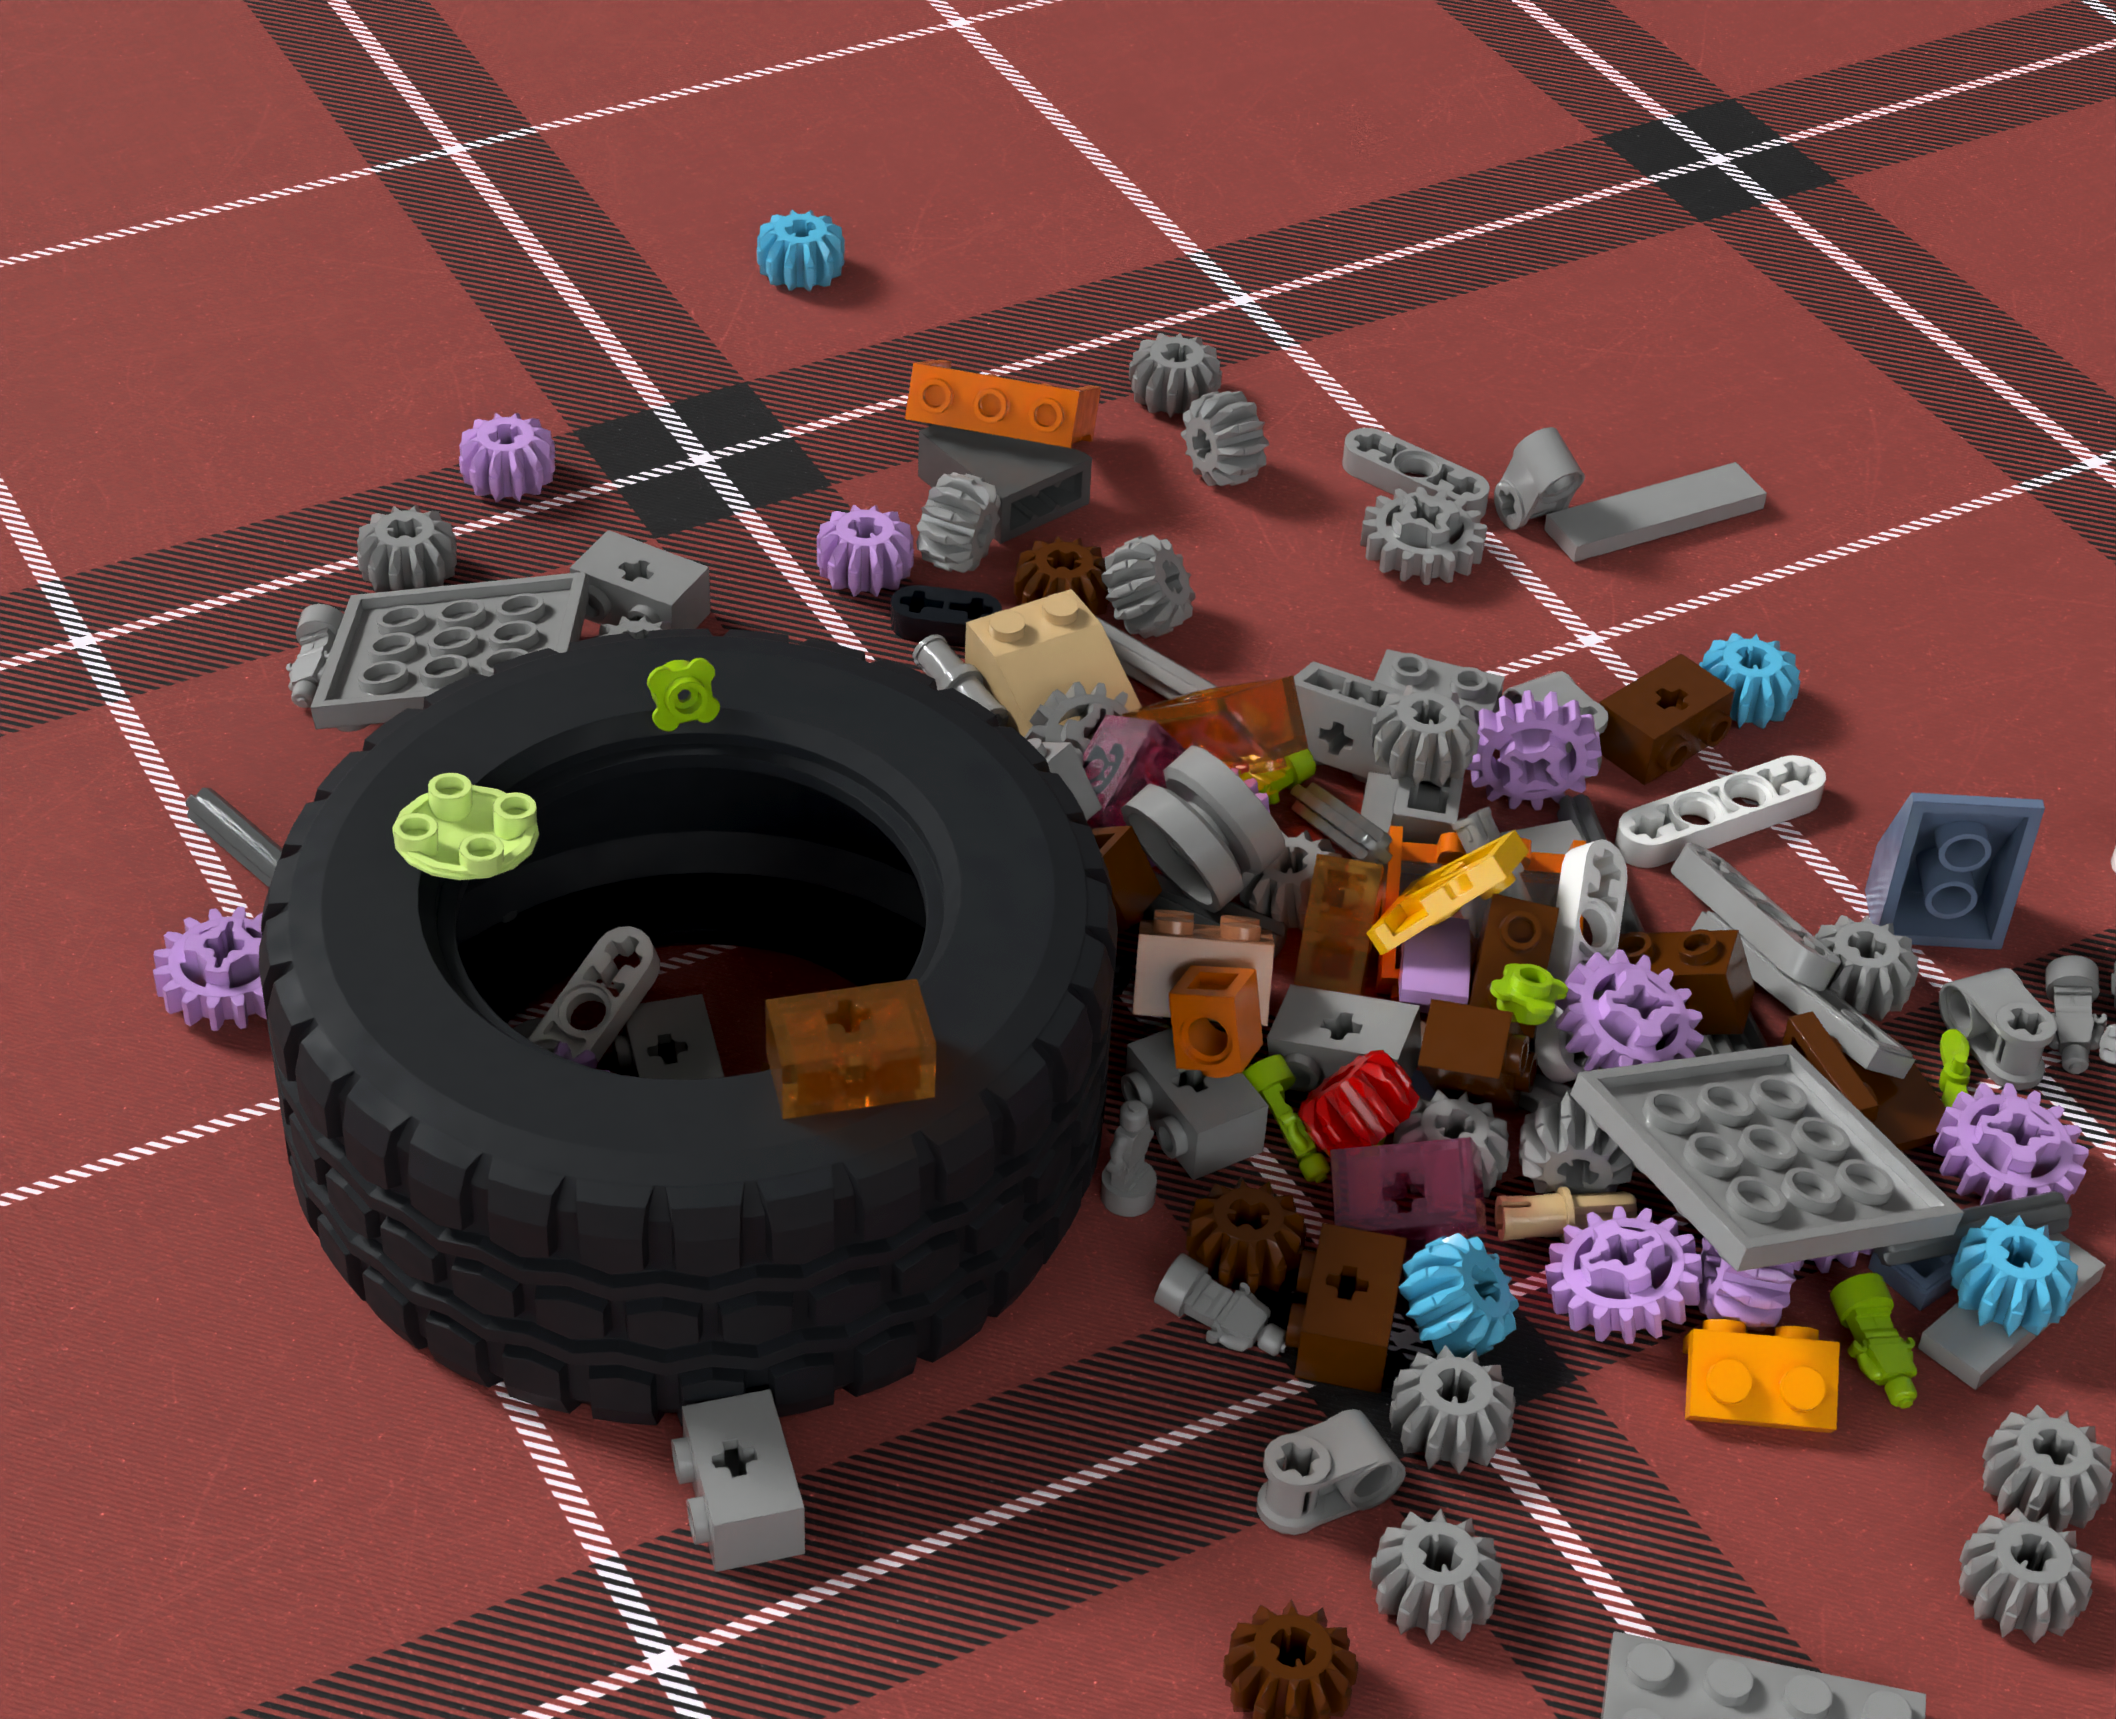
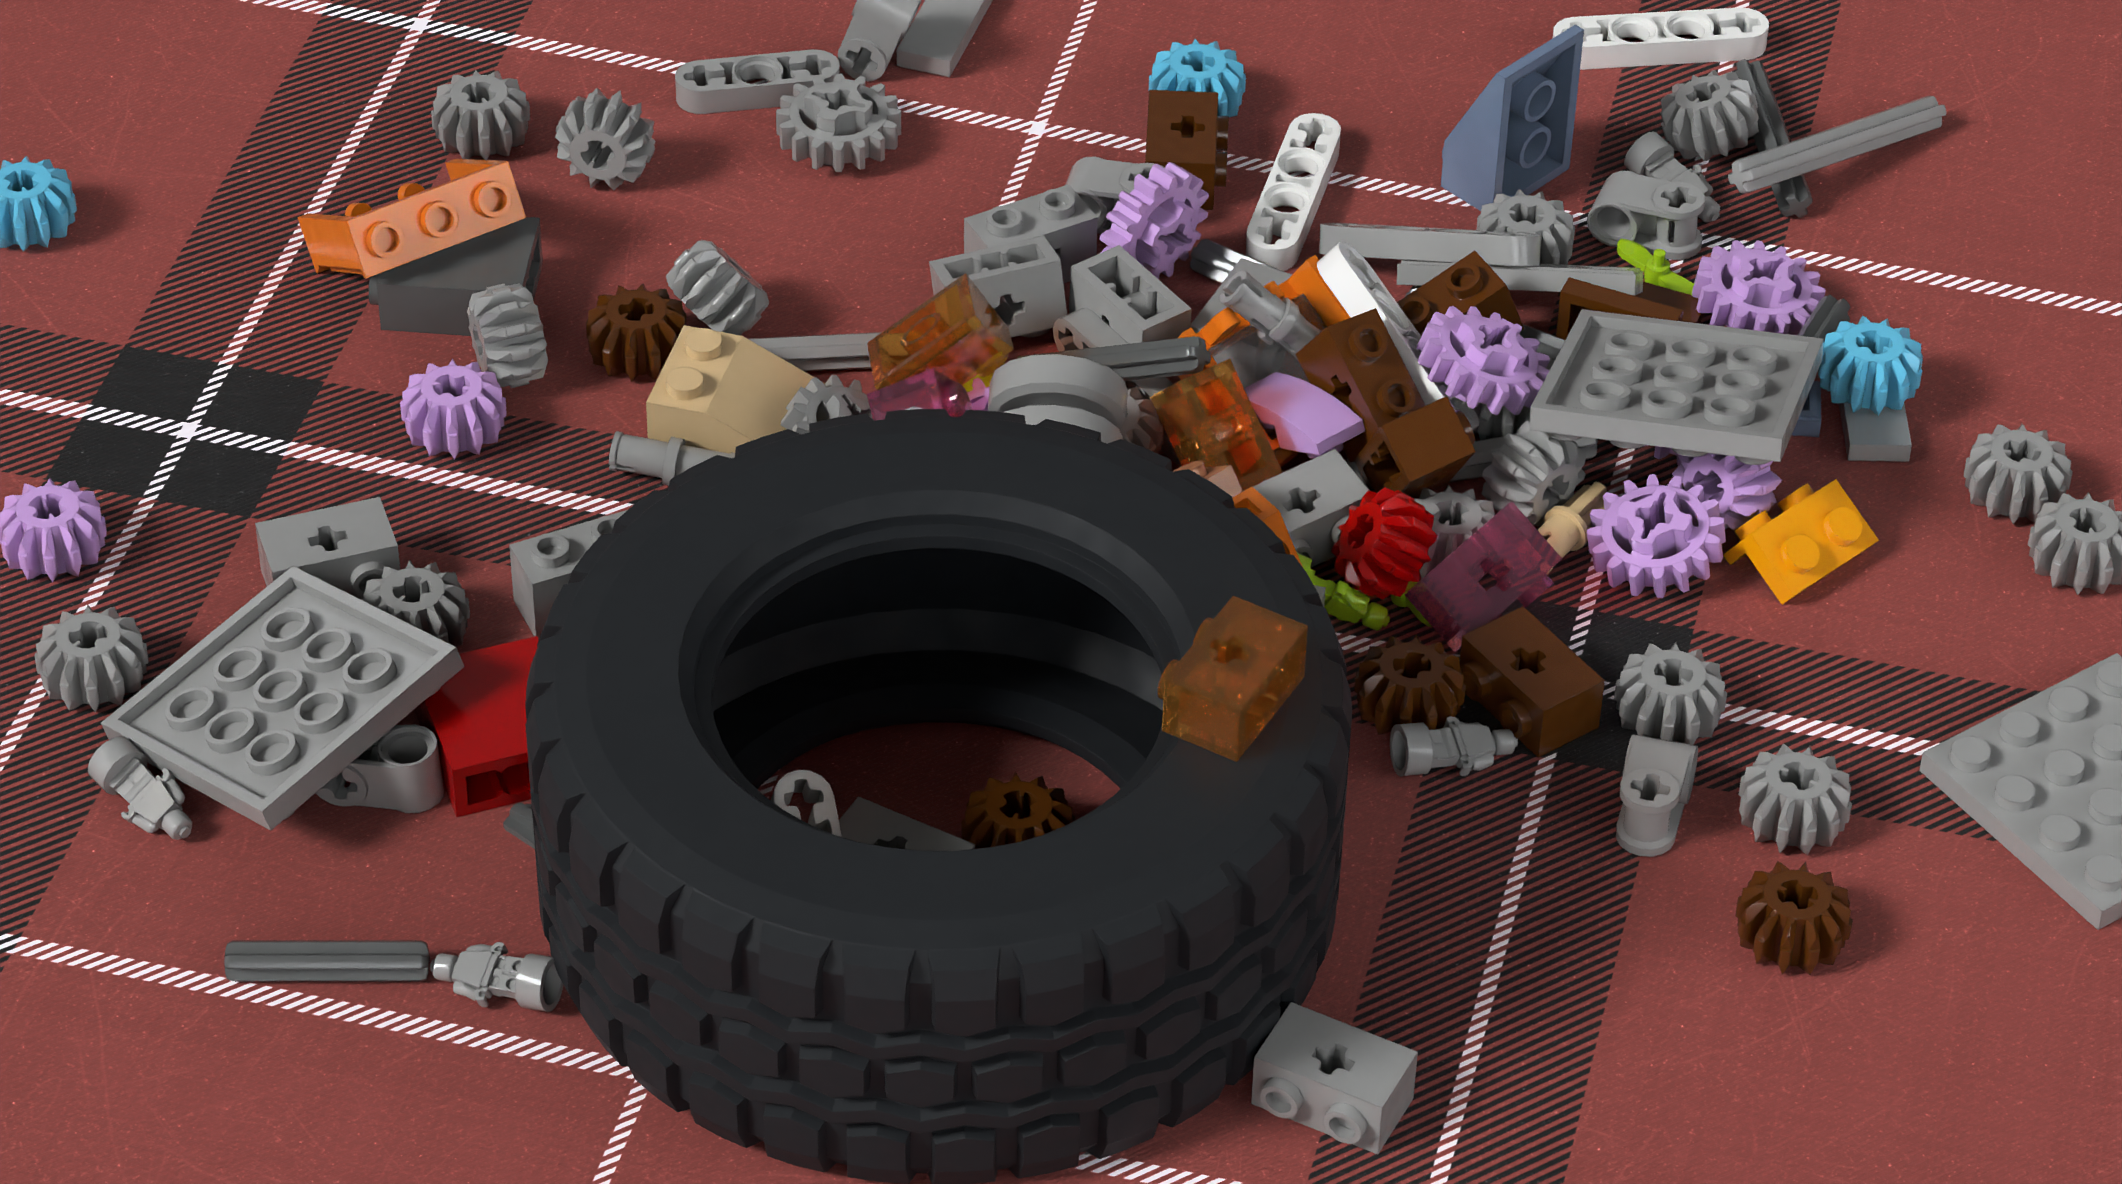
camera: 45 degrees left, 0 degrees up
(212, 970) = (464, 1049): lavender gear -> none
(466, 829) = (752, 735): yellowish green dish -> none
(679, 675) = (749, 536): lime plate -> none
(930, 610) = (578, 419): black beam -> none
(1424, 736) = (1108, 256): light grey gear -> none
(1448, 889) = (1280, 348): yellow wing -> none
(1459, 1296) = (1593, 620): medium azure gear -> none
(1528, 992) = (1423, 380): lime plate -> none
(1883, 1356) = (1806, 457): lime piece -> none

